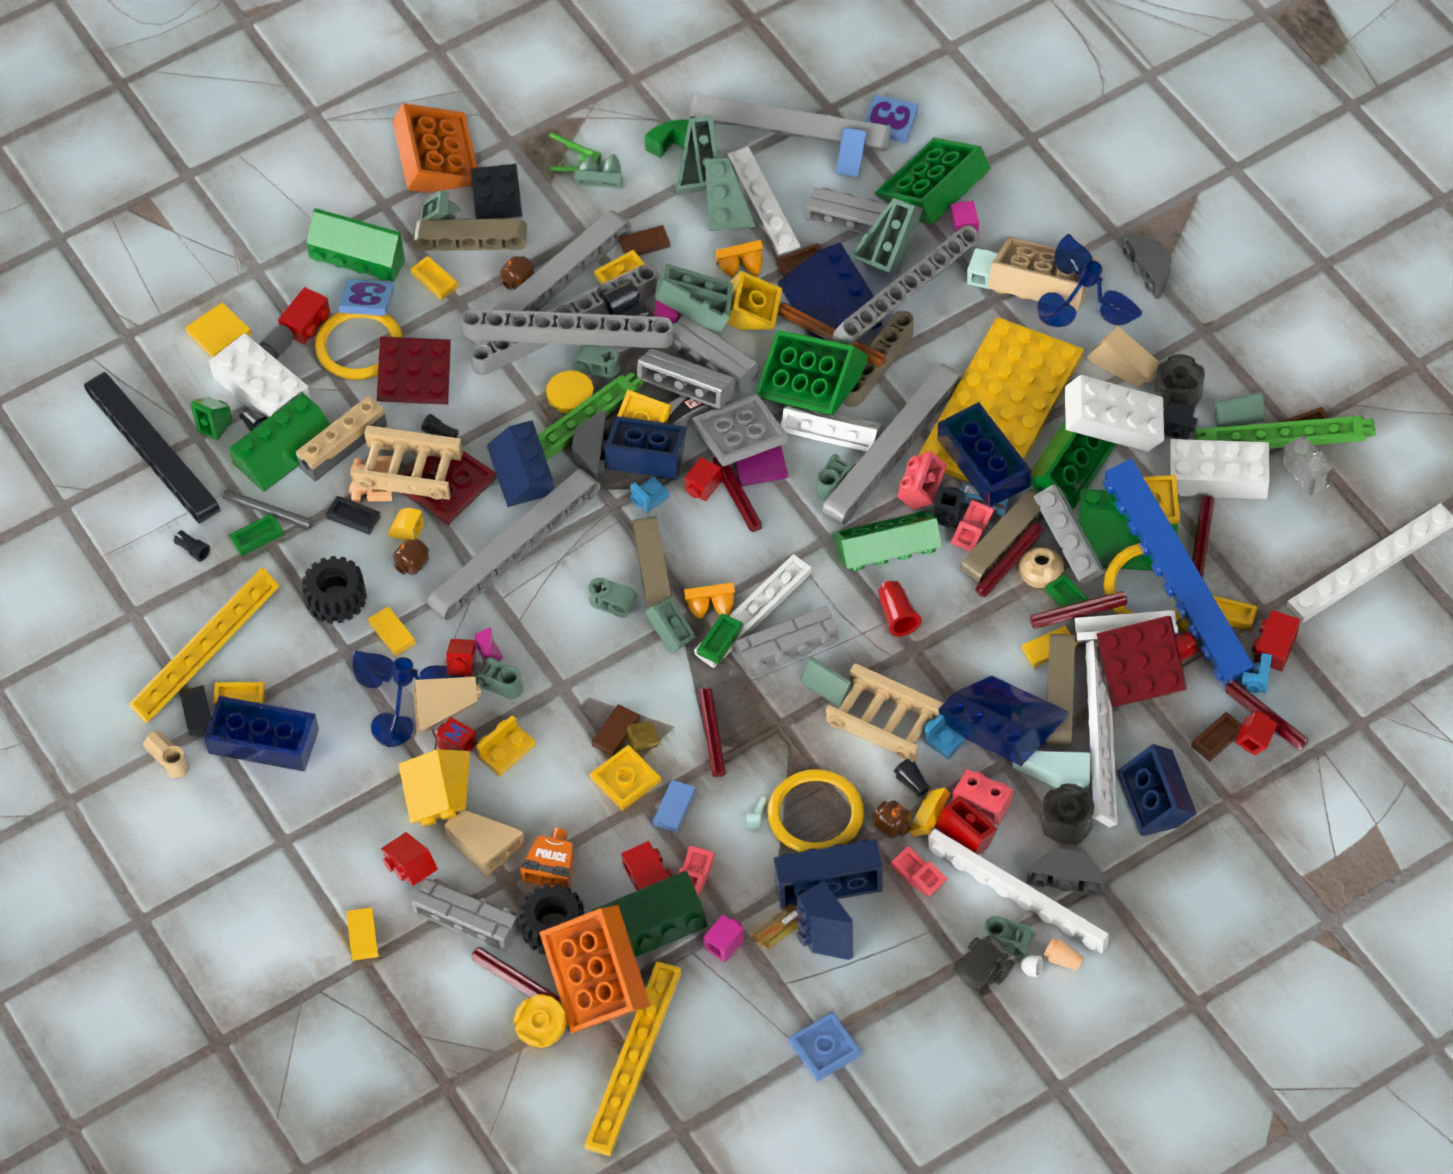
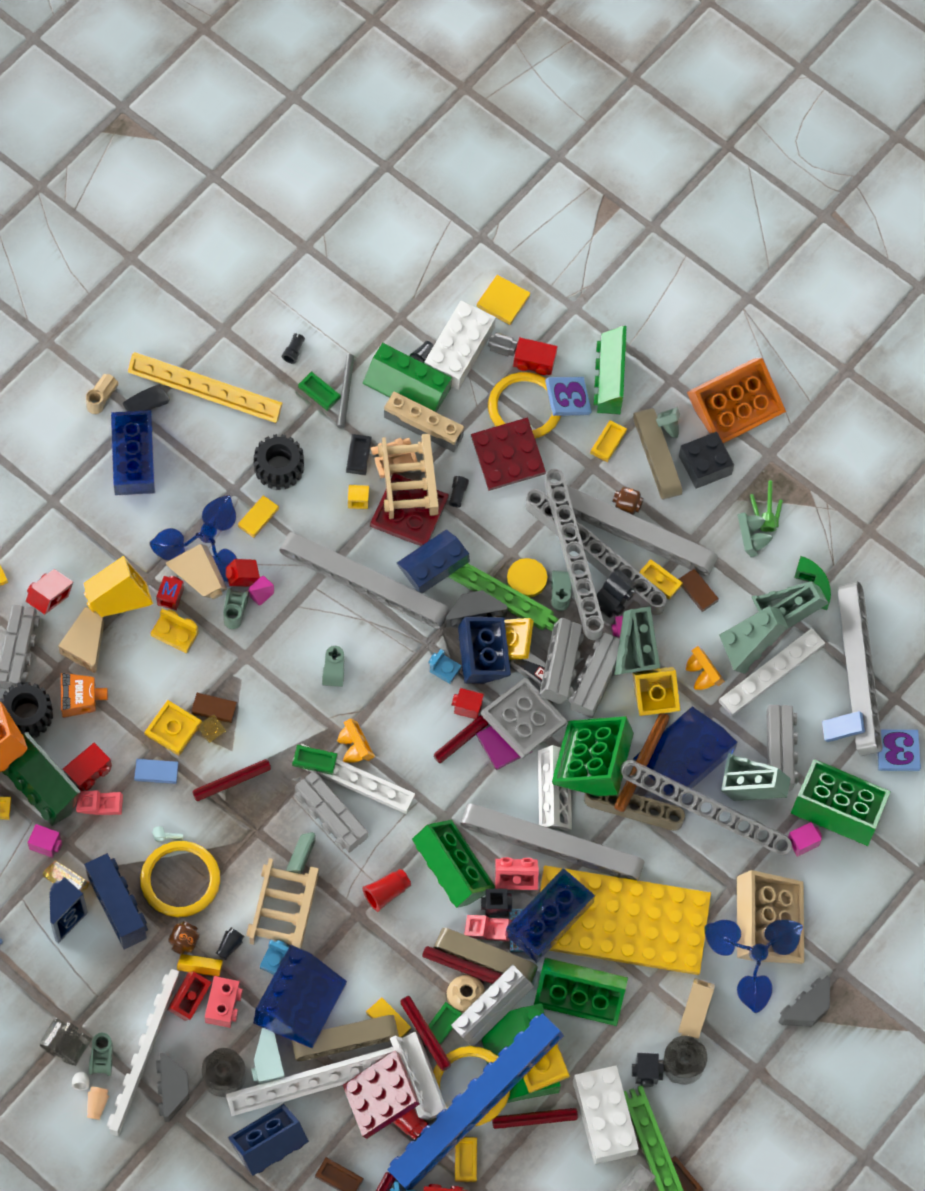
camera: 65 degrees right, 10 degrees up
(152, 447) = (374, 289): black beam -> none
(211, 416) = (414, 320): green slope -> none
(240, 690) = (170, 427): yellow tile -> none
(411, 557) = (326, 507): reddish brown head -> none
(651, 560) = (370, 690): dark tan beam -> none
(670, 624) = (319, 719): sand green slope -> none
(792, 260) = (721, 716): reddish brown tile -> none
(832, 475) = (505, 802): sand green piece -> none
(917, 872) = (145, 971): coral slope -> none
(980, 267) = (758, 863): light aqua brick -> none
(1114, 413) = (623, 1010): white brick -> none
(1240, 410) = (674, 1119): sand green slope -> none

